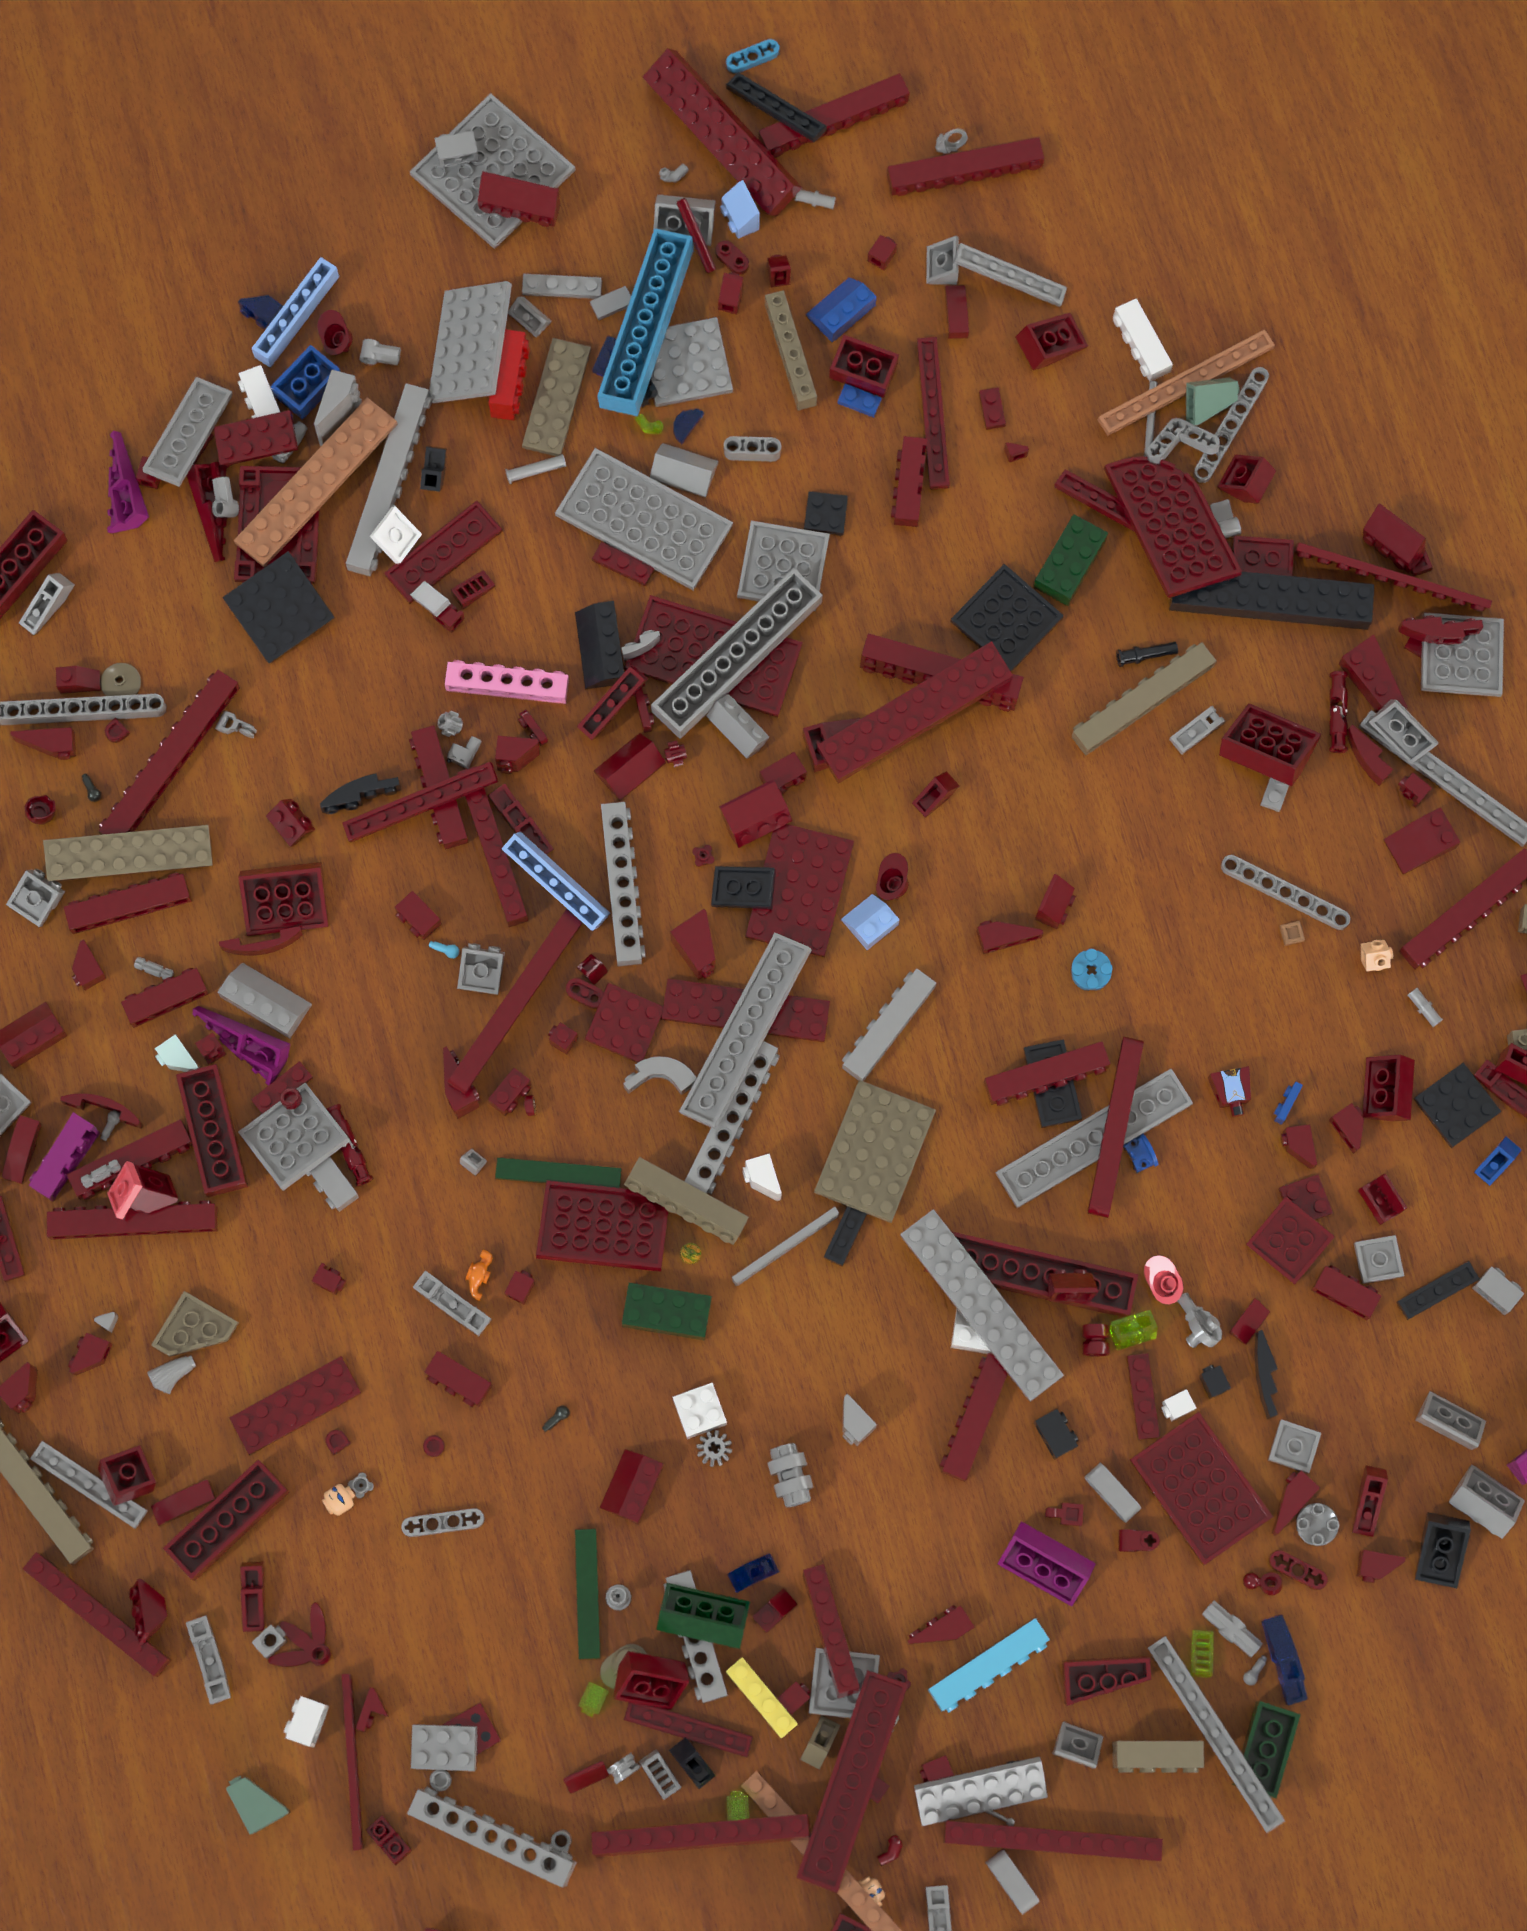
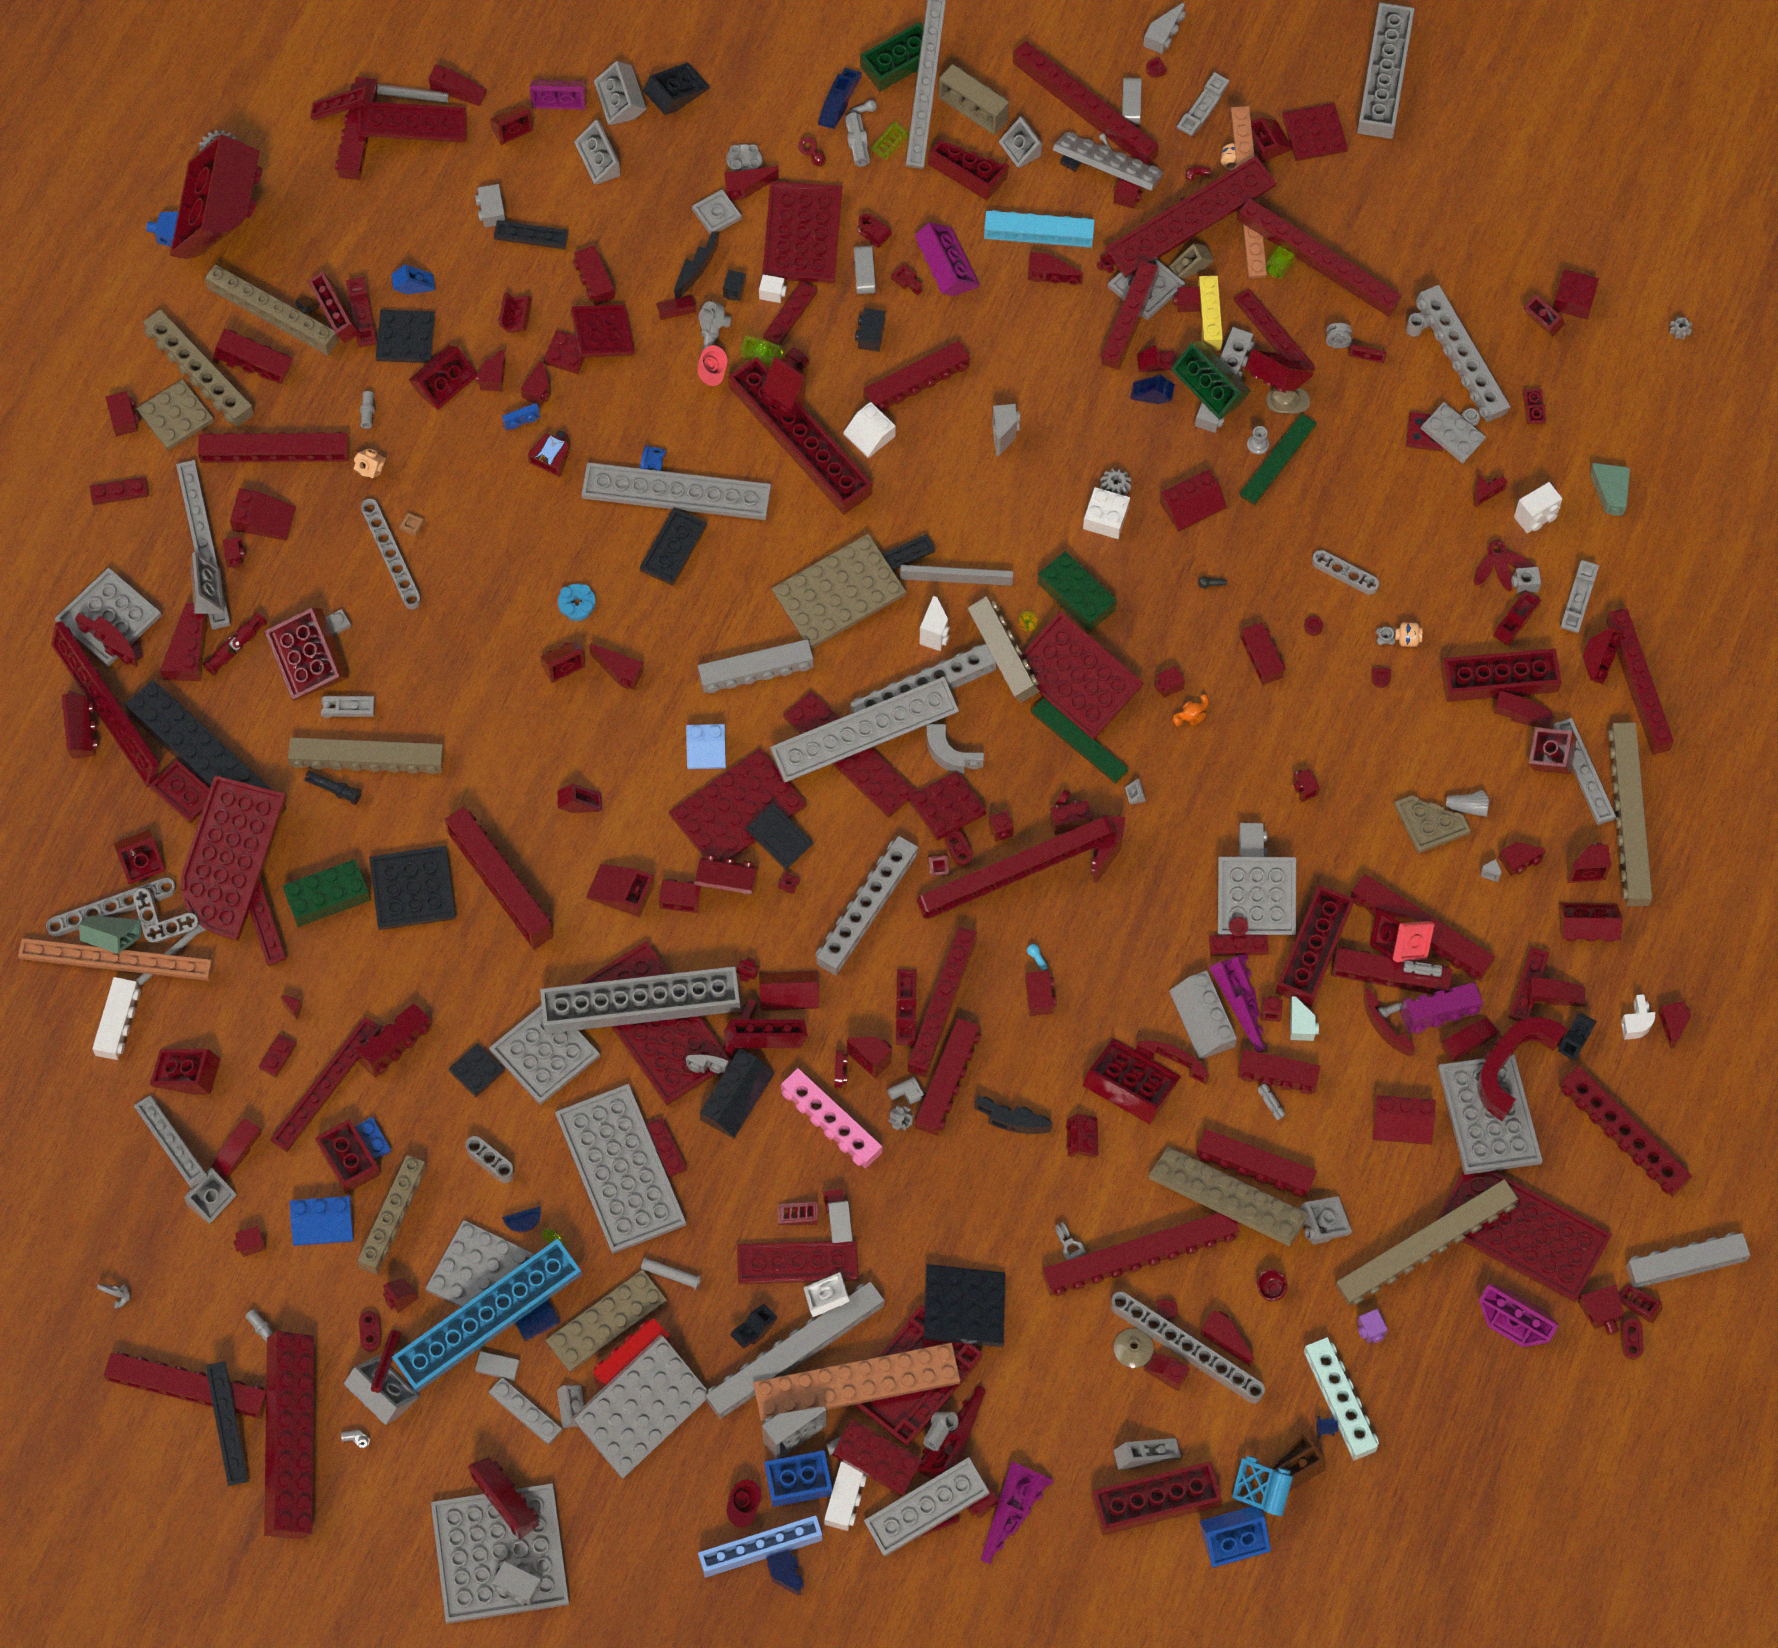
camera: 140 degrees left, 10 degrees down
(86, 968) = (1323, 1137): dark red slope -> none
(93, 793) = (1220, 1271): pearl dark grey piece -> none
(295, 1405) = (1393, 721): dark red plate -> none
(352, 1154) = (1222, 849): dark red piece -> none
(352, 1762) = (1524, 467): dark red tile -> none
(375, 352) = (721, 1467): light grey piece -> none
(420, 802) = (973, 1066): dark red plate -> none
(451, 1303) = (1226, 704): light grey slope -> none
(481, 969) = (1022, 919): light grey plate -> none
(556, 881) = (916, 936): light blue brick -> none
(593, 1699) = (1325, 391): clear neon green brick -> none
(650, 1758) = (1316, 331): light grey slope -> none
(683, 470) = (555, 1186): light grey slope -> none
(692, 1763) = (1289, 310): black slope -> none
(695, 944) = (848, 817): dark red slope -> none
(737, 56) = (220, 1490): dark azure beam -> none
(737, 726) = (683, 947): light grey brick -> none
(740, 210) = (332, 1357): light blue slope -> none
(778, 270) = (344, 1285): dark red slope -> none
(788, 1467) = (1076, 429): light grey piece -> none
(892, 877) = (664, 760): dark red piece -> none
(914, 712) = (549, 848): dark red brick -> none
(965, 166) = (122, 1262): dark red brick -> none
(981, 1305) = (854, 432): light grey plate -> none
(1047, 1073) = (673, 548): dark red brick -> none
(1115, 1127) = (656, 481): dark red beam -> none
(1223, 514) = (184, 836): light grey panel -> none
(1310, 1582) = (781, 151): dark red beam -> none
(1368, 755) = (243, 596): dark red slope -> none
(1370, 1500) = (693, 148): dark red slope -> none
(1376, 1565) = (727, 108): dark red slope -> none
(1379, 1259) = (552, 280): light grey plate -> none

